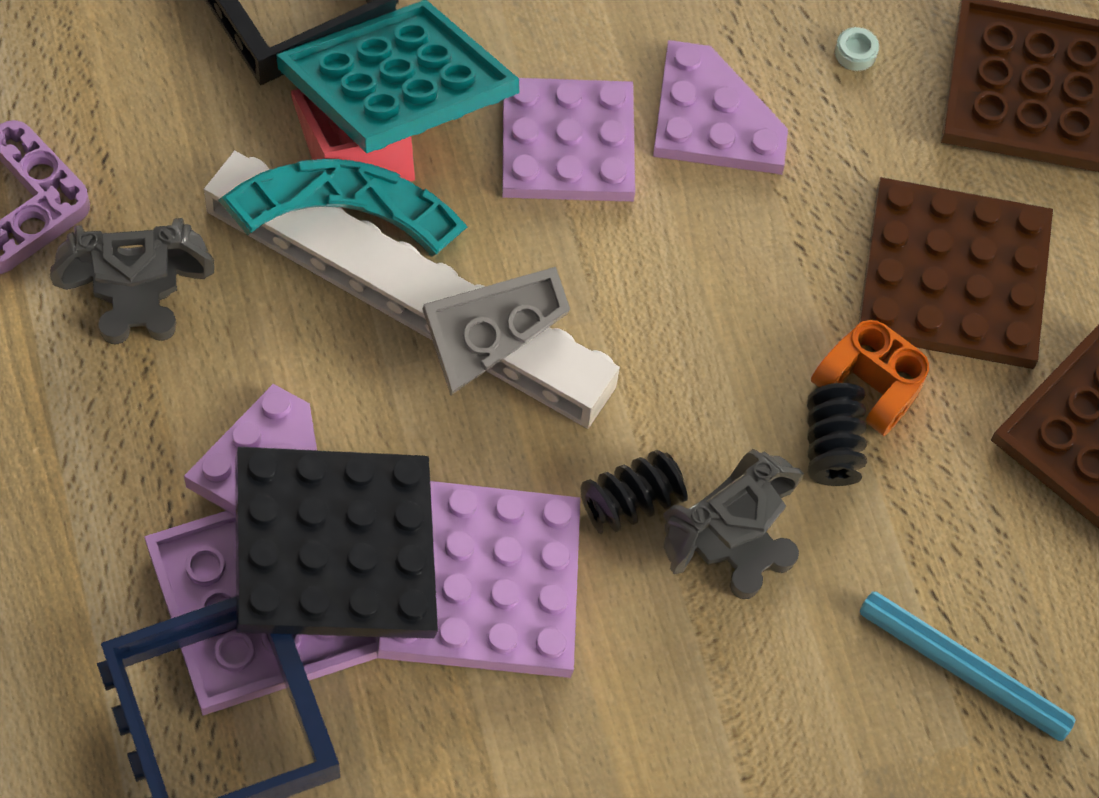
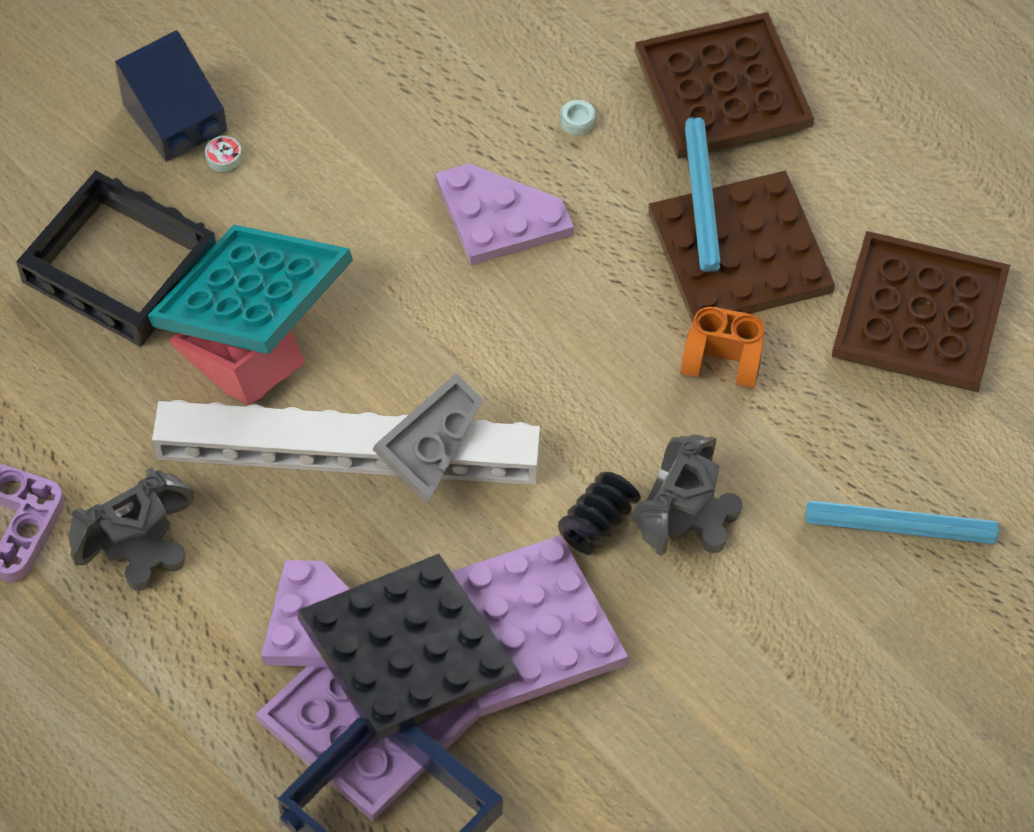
camera: 20 degrees left, 5 degrees down
(347, 186) = (262, 387): teal tile -> none
(569, 140) = (403, 281): lavender plate -> none
(835, 434) = (721, 403): black piece -> none
(941, 194) = (702, 195): none -> medium azure axle

